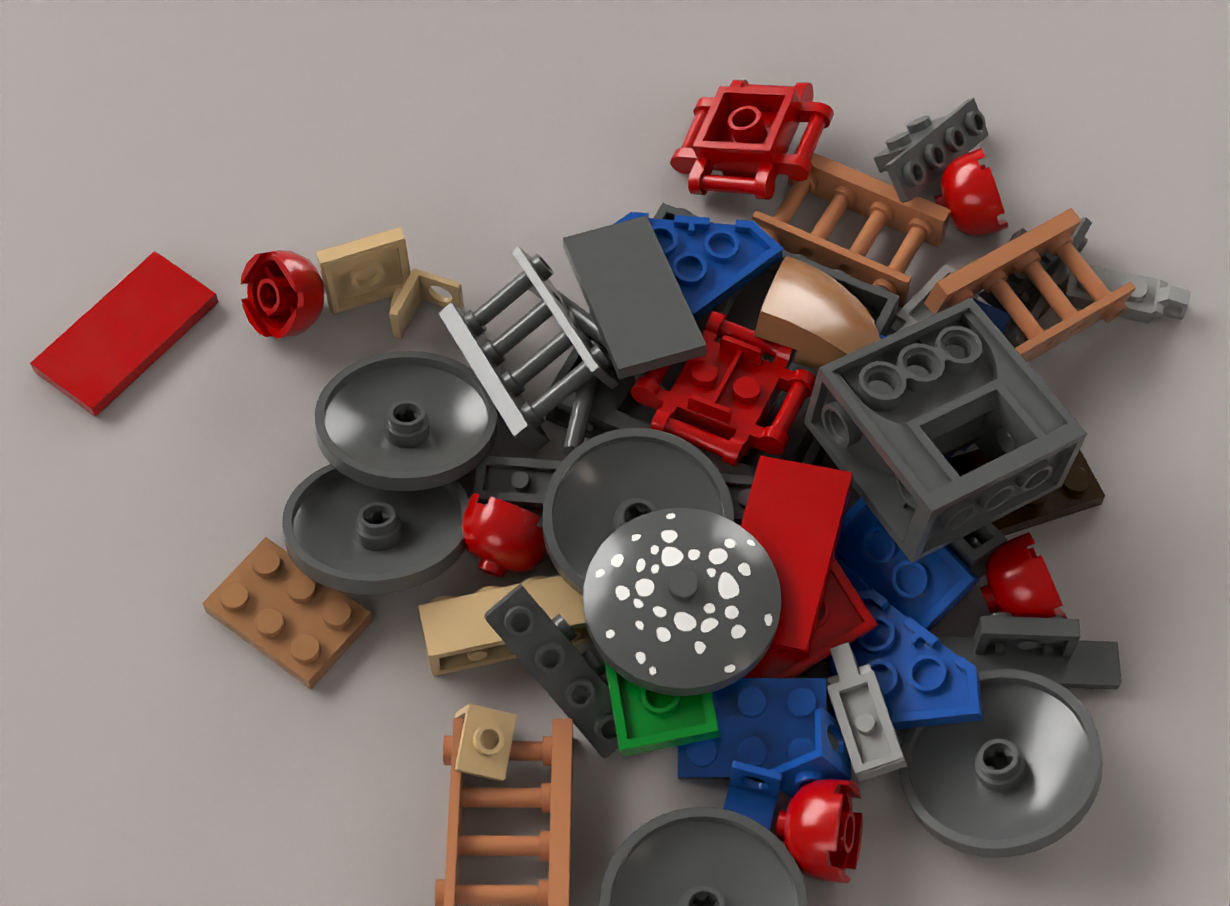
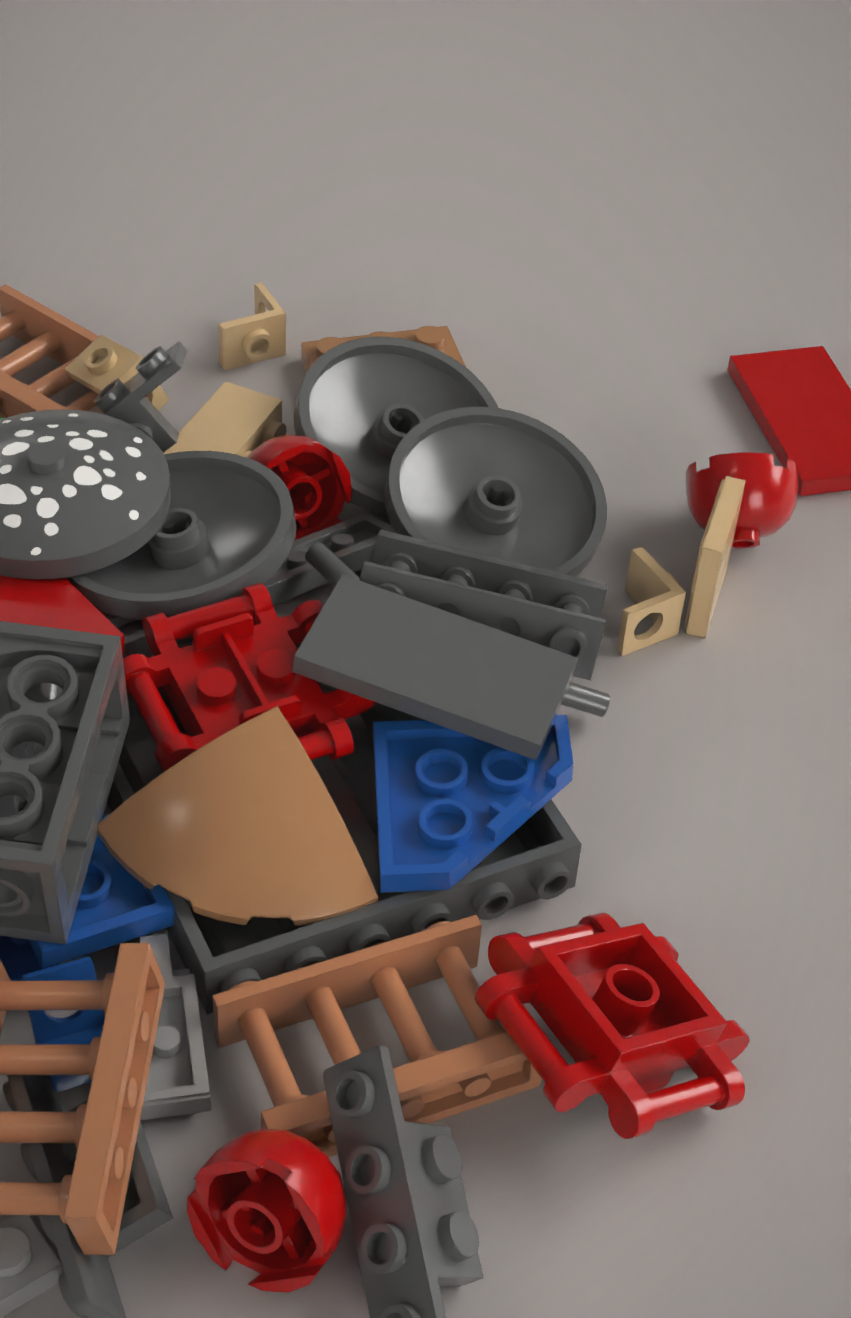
camera: 125 degrees right, 15 degrees down
(332, 706) = (254, 336): none -> tan bracket

